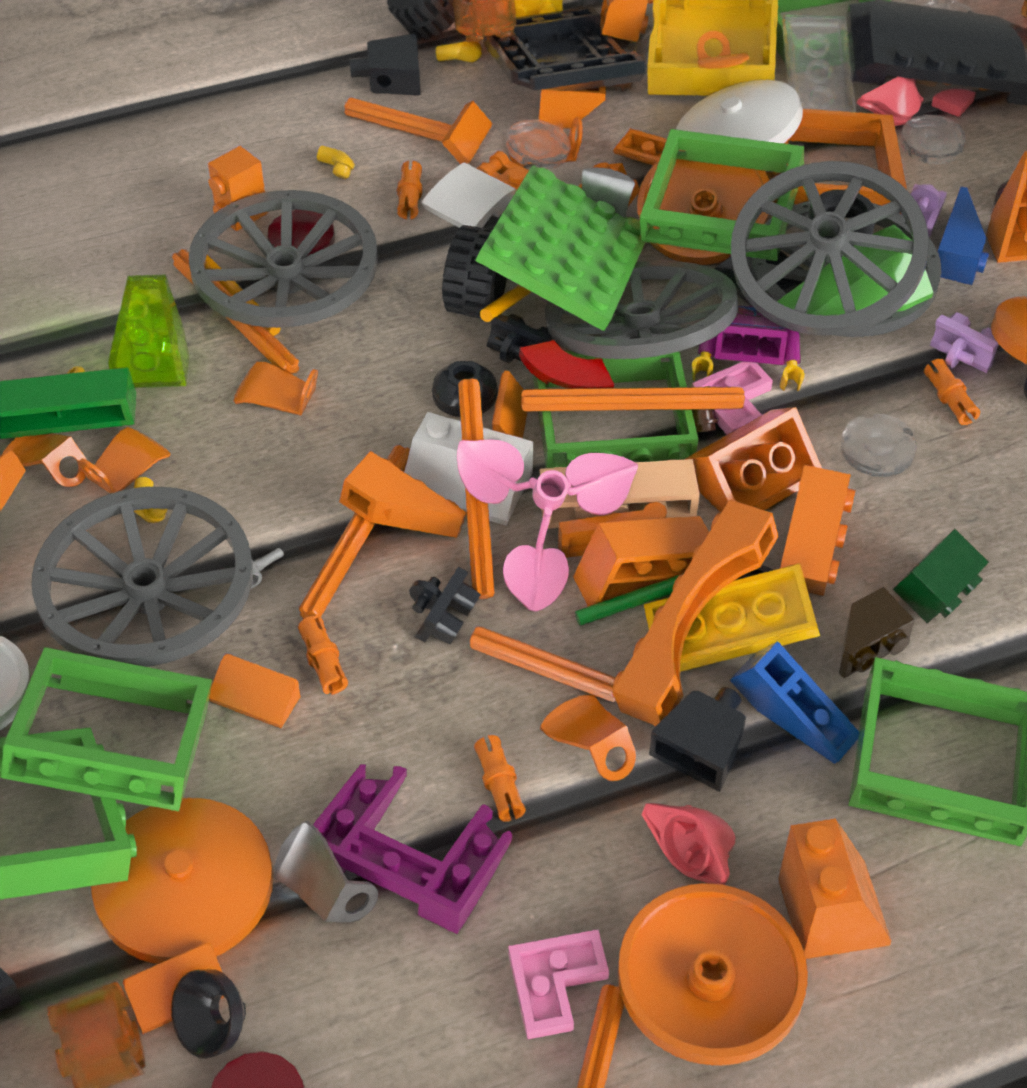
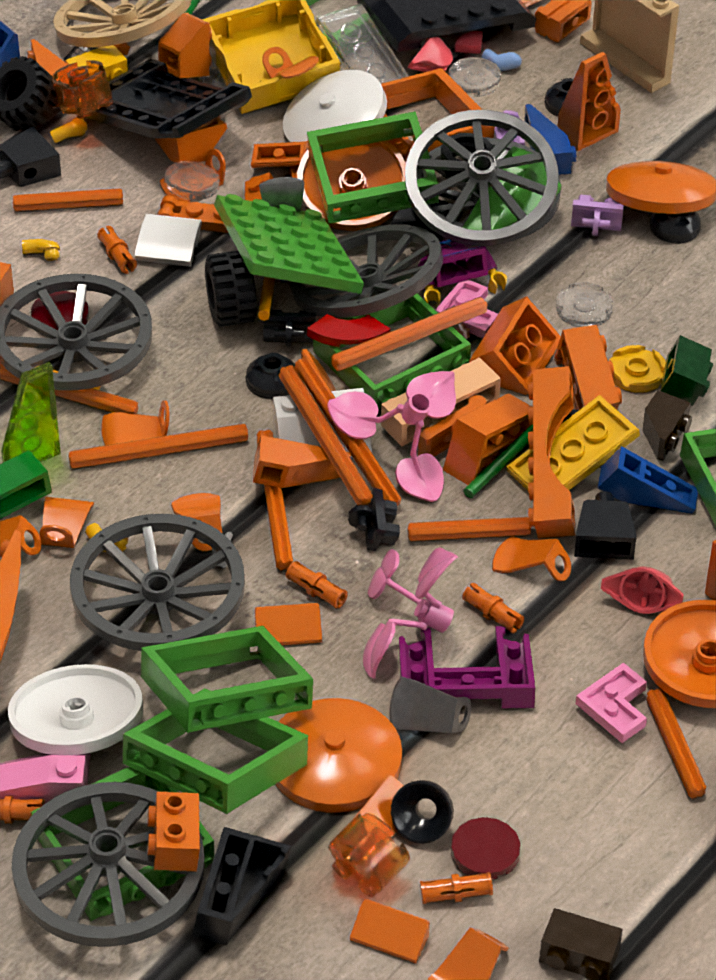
camera: 30 degrees left, 5 degrees down
(264, 509) = (202, 507): none -> orange piece
(285, 418) = (158, 446): none -> orange axle
(411, 749) = (429, 611): none -> bright pink plant
(443, 484) = (325, 436): none -> orange axle
(467, 133) = (129, 191): orange tile -> none
(887, 547) = (637, 368): none -> yellow tile
(952, 391) = (609, 251): orange pin -> none
(977, 132) = (504, 61): none -> light blue arm

